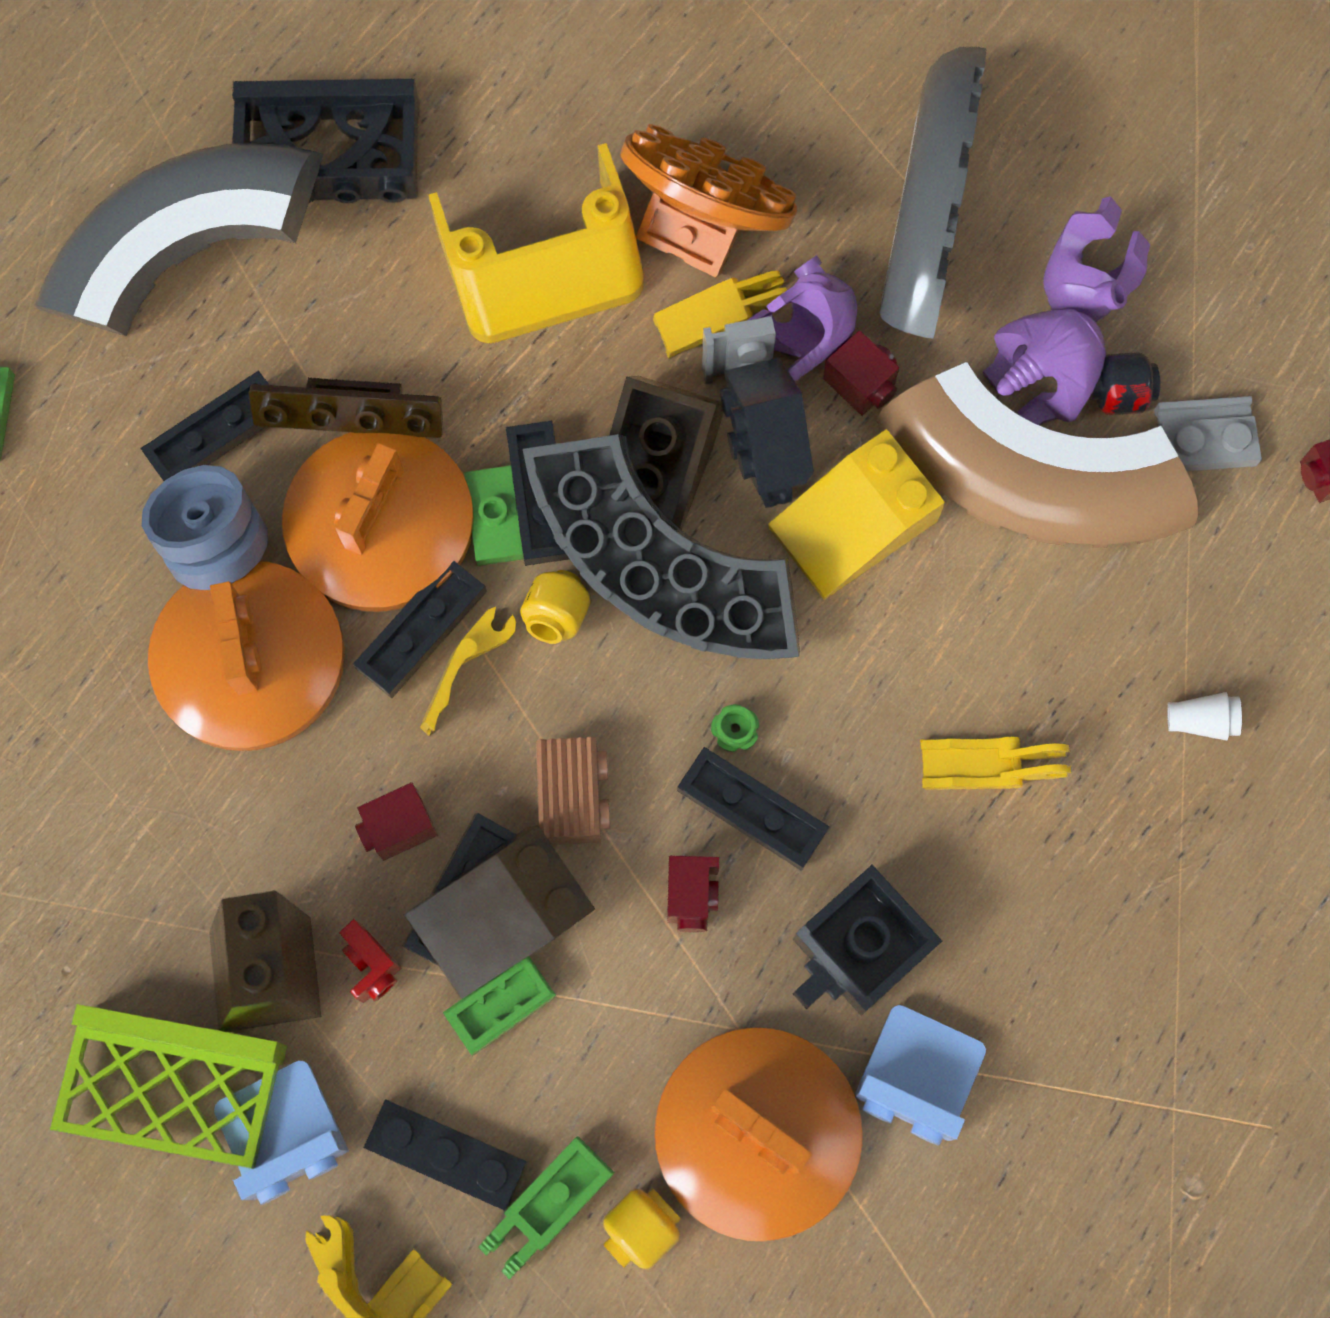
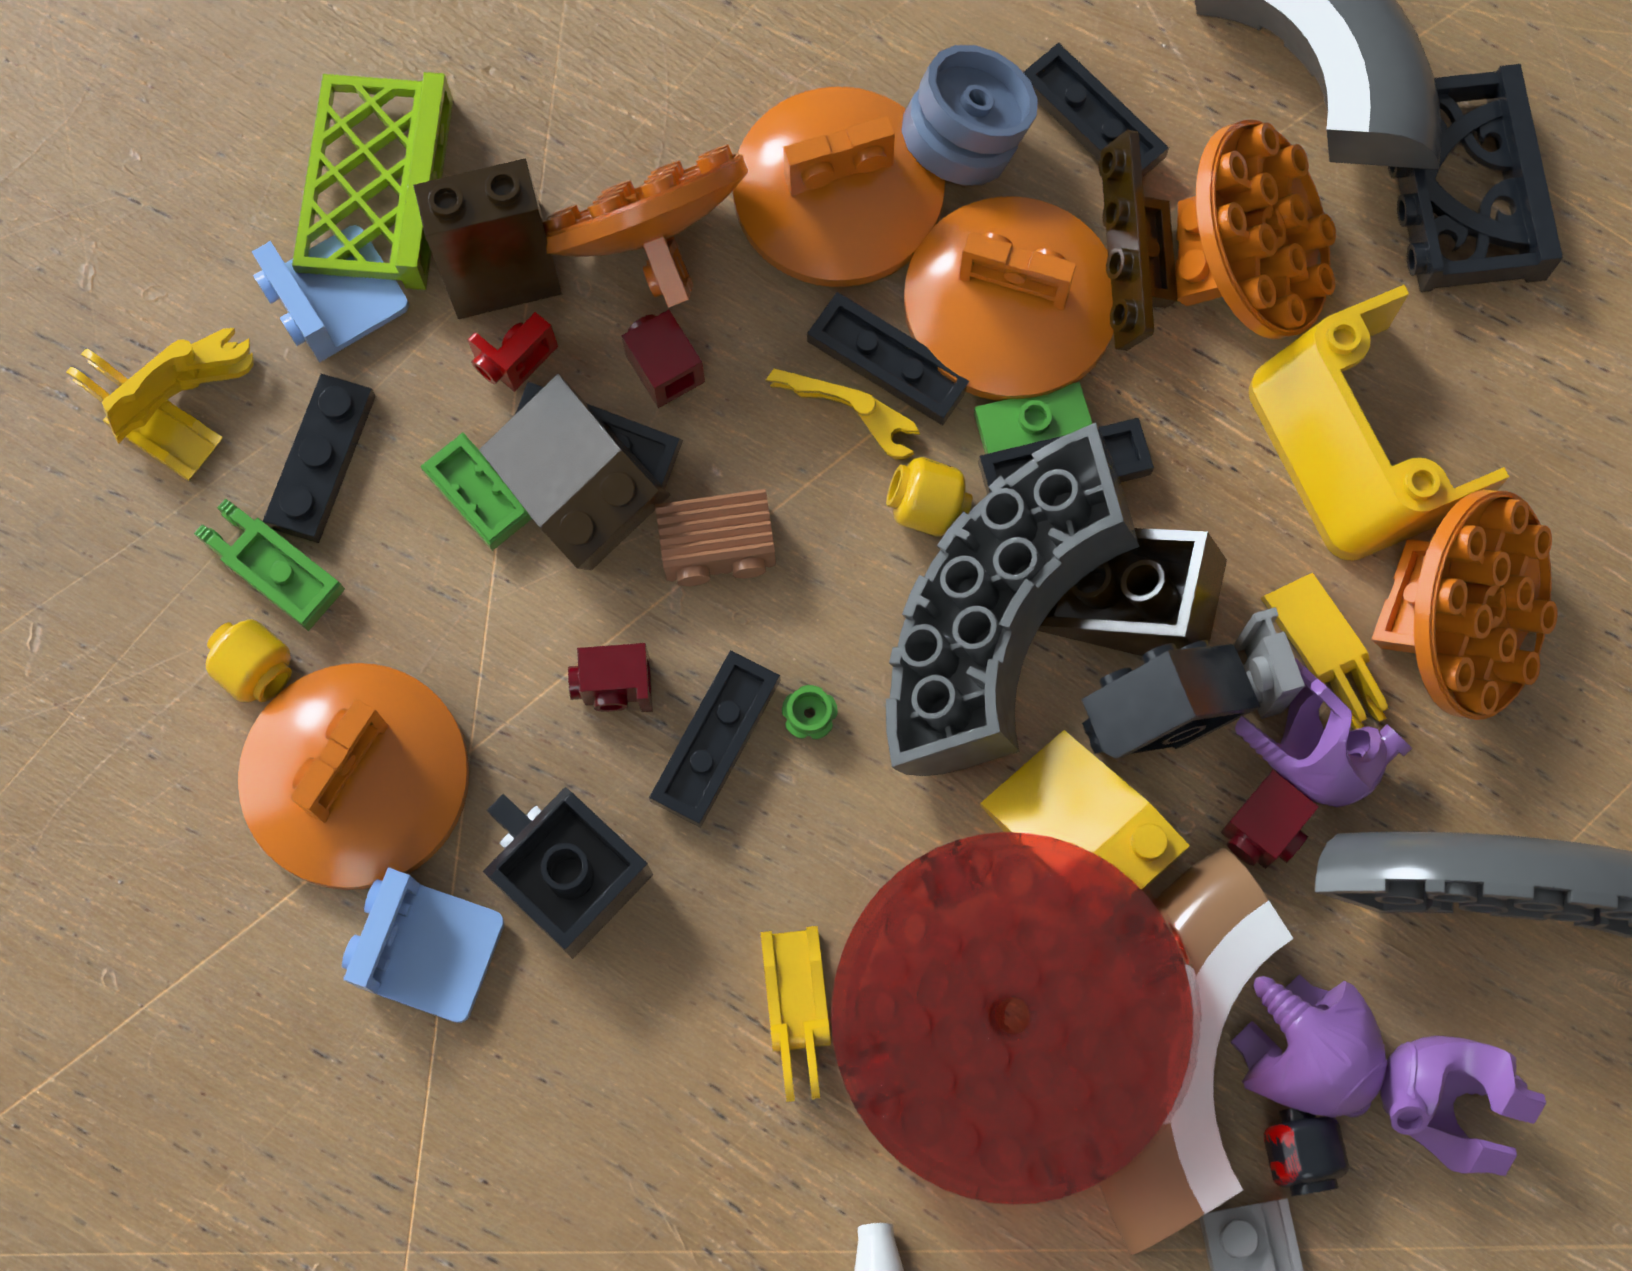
camera: 85 degrees right, 0 degrees up
(261, 808) = (650, 218): none -> orange bracket
(355, 314) = (1256, 232): none -> orange bracket
(1091, 589) = (928, 999): none -> clear red brick

